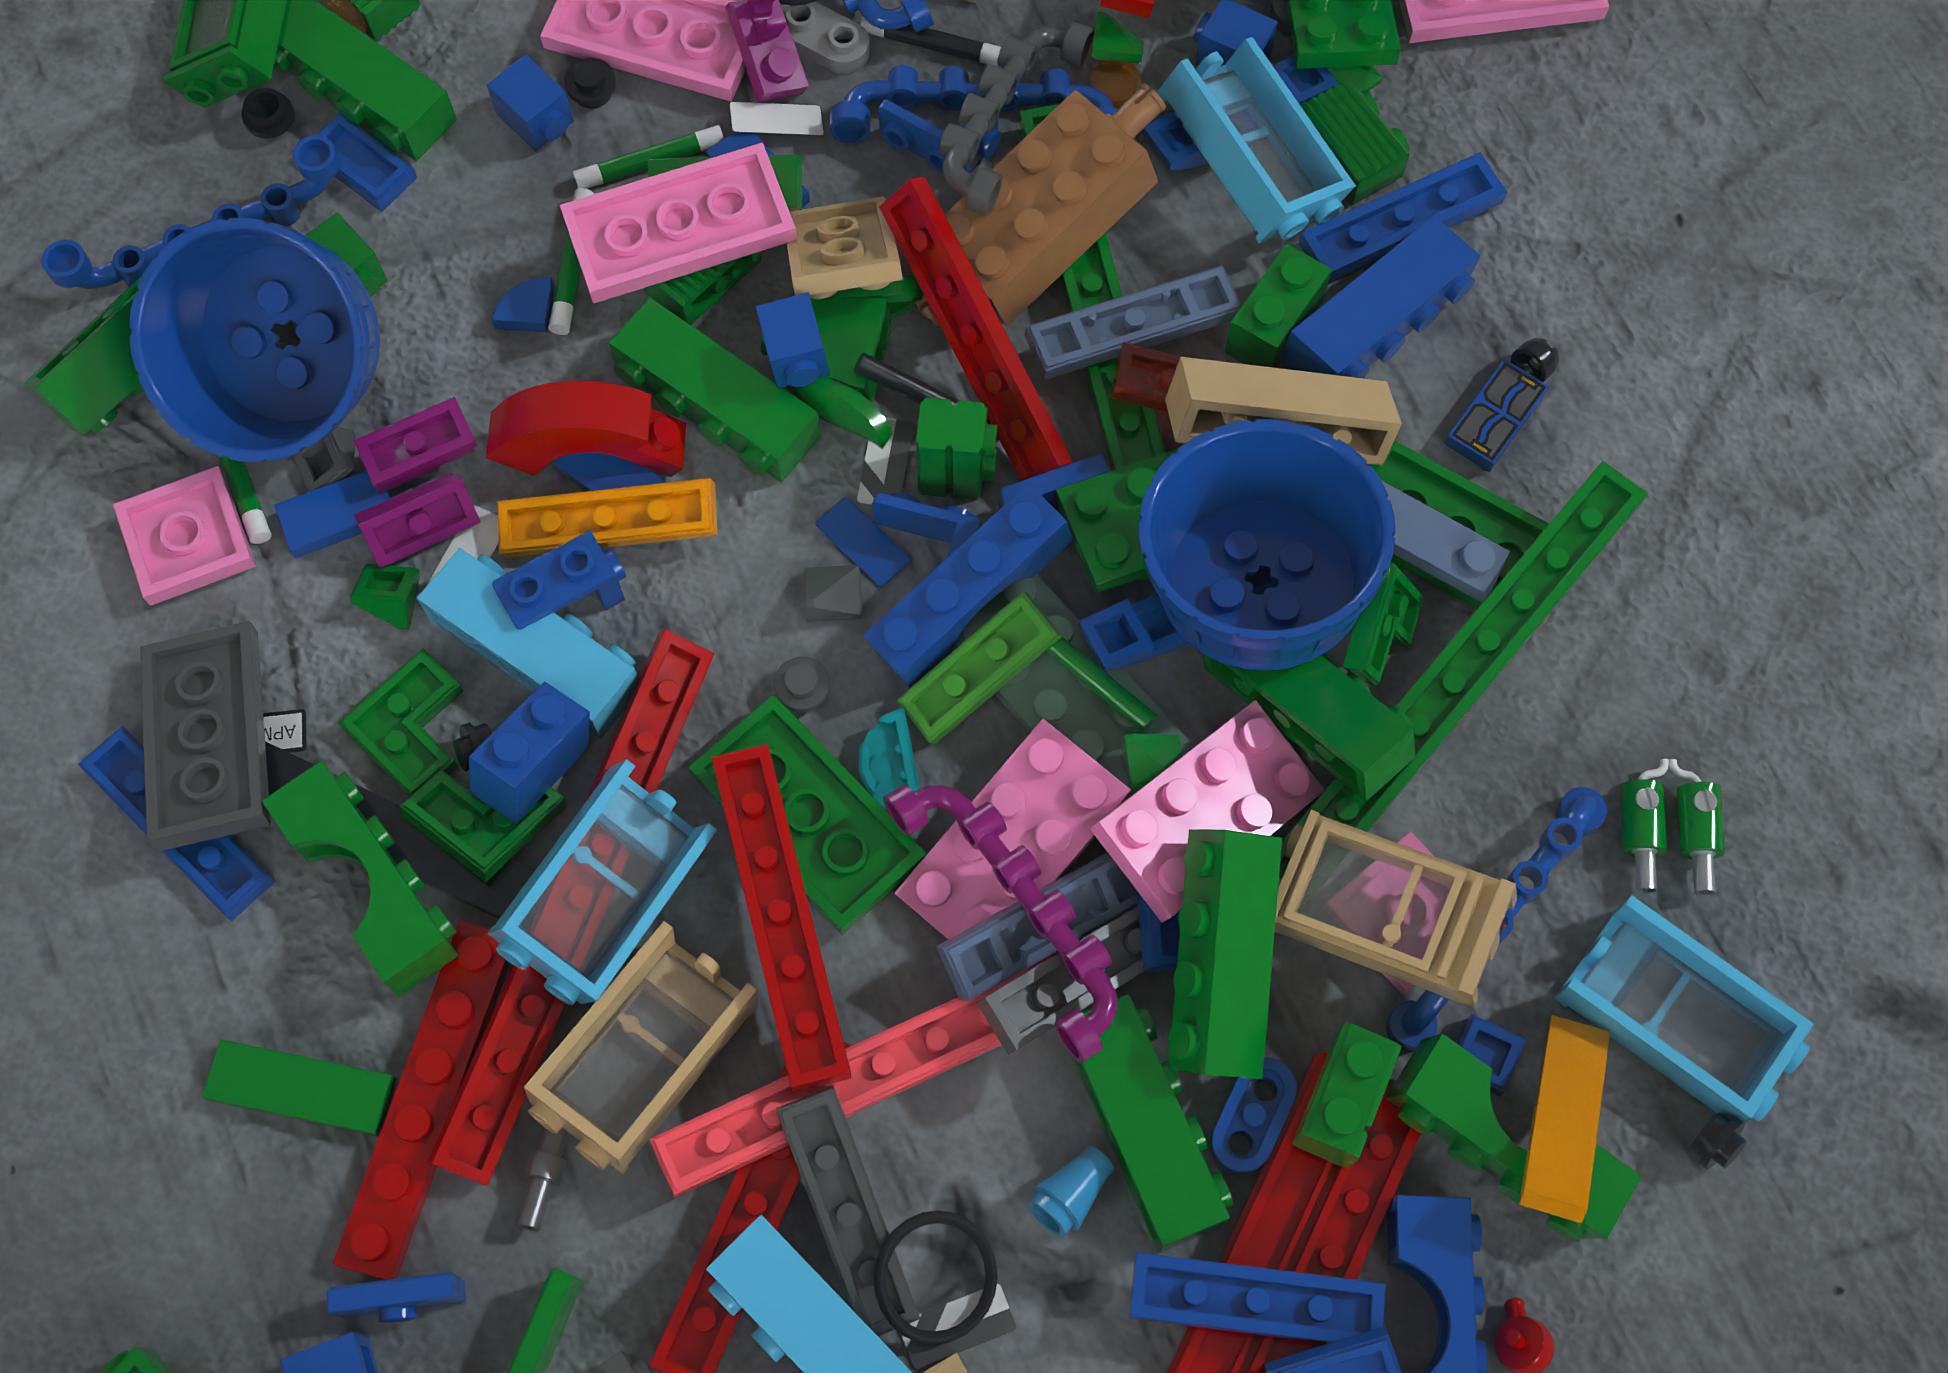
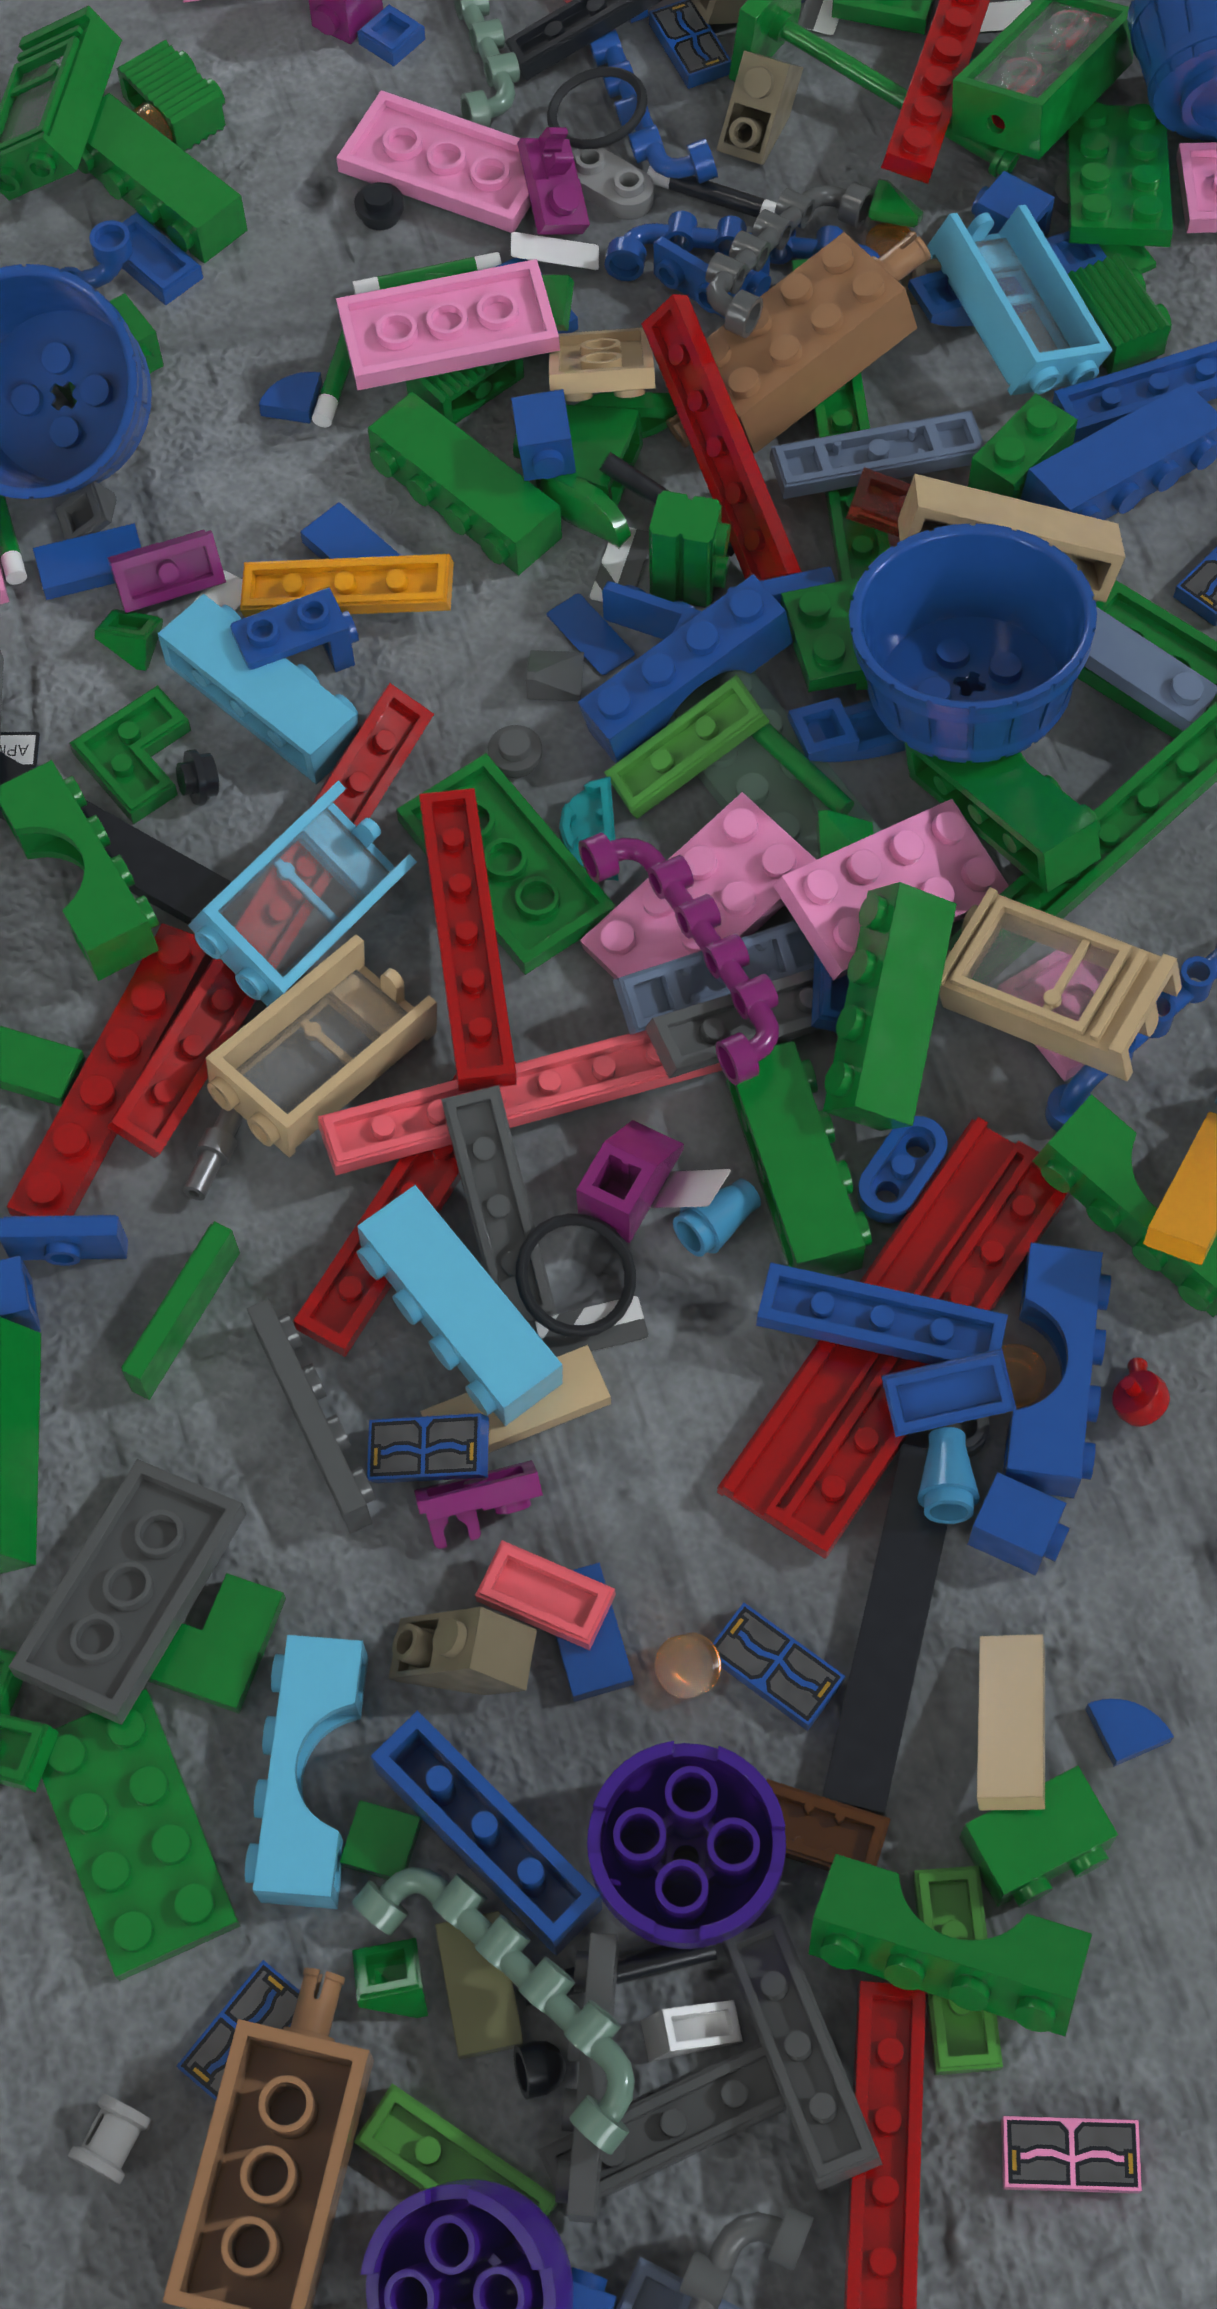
camera: 10 degrees right, 5 degrees down
(267, 113) = (68, 207): black plate -> none
(415, 445) = (174, 504): magenta plate -> none
(472, 829) = (193, 847): green tile -> none
(529, 752) = (247, 777): blue brick -> none
(530, 103) = (320, 216): blue brick -> none
(584, 418) = (335, 489): red arch -> none
(977, 1158) = (627, 1177): none -> magenta slope
(1041, 1168) = (690, 1188): none -> white sticker
(1347, 1095) = (992, 1146): green brick -> none
(1384, 622) = (1088, 732): green tile -> none
(1405, 1329) = (1025, 1372): none -> clear orange tile
(1493, 1047) = (1152, 1140): blue tile -> none

